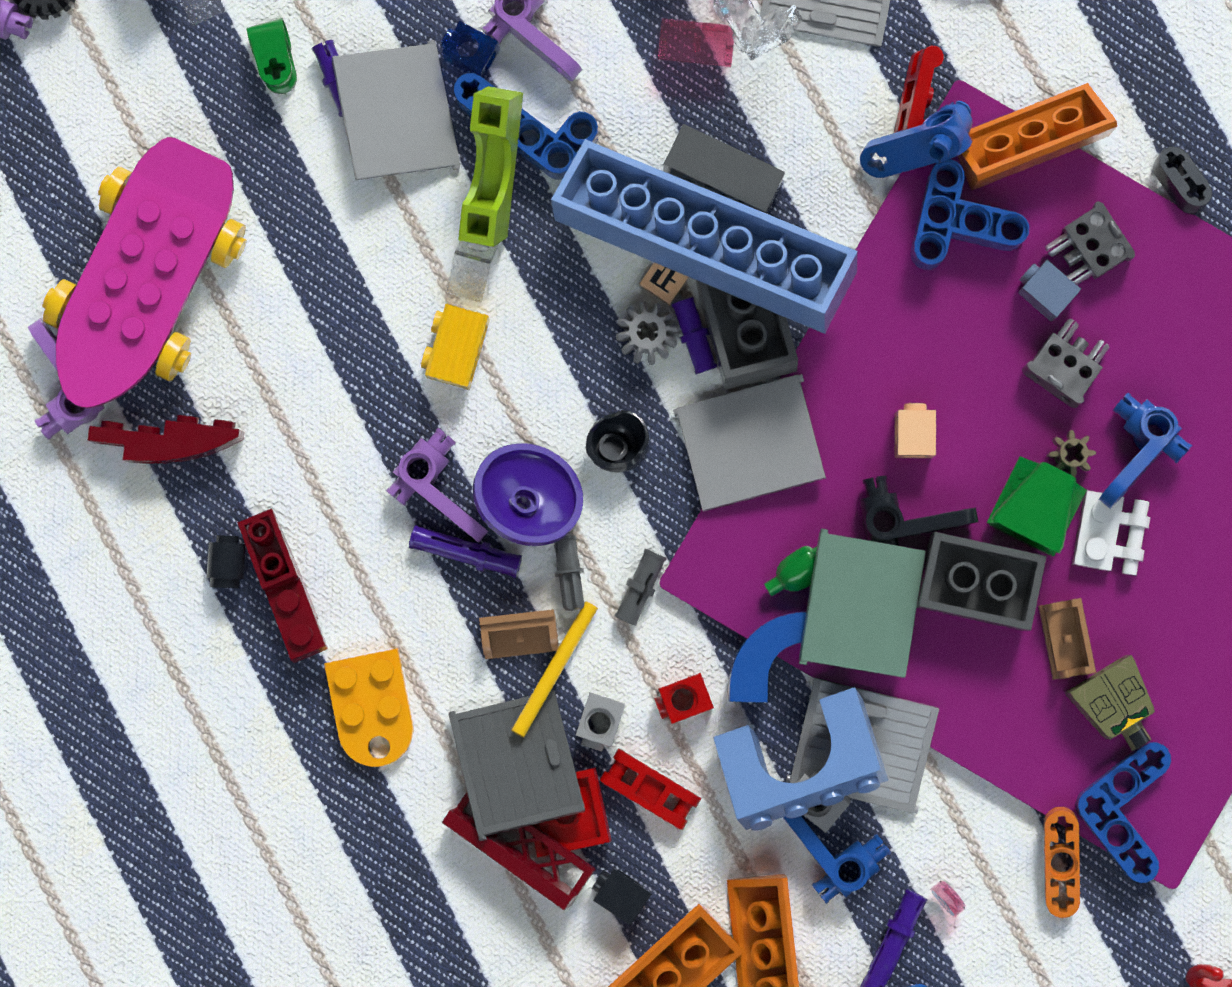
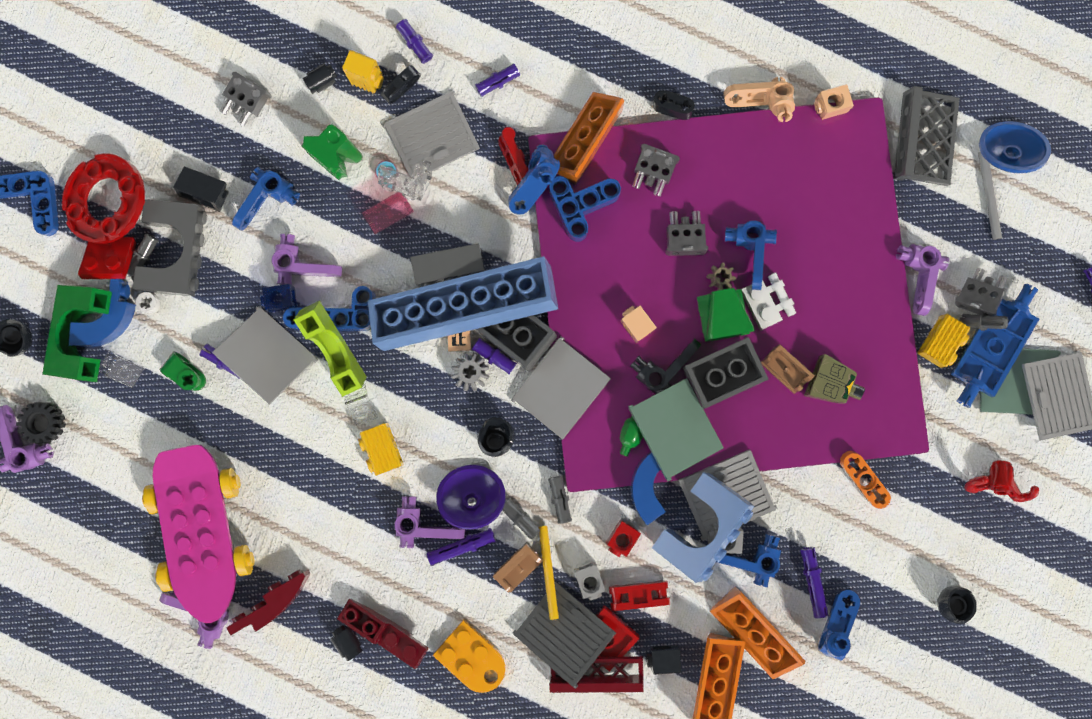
camera: 40 degrees left, 0 degrees up
(948, 898) = (824, 539): clear pink tile -> none
(1047, 289) = (649, 205): sand blue brick -> none
(1113, 801) = (868, 431): blue beam -> none

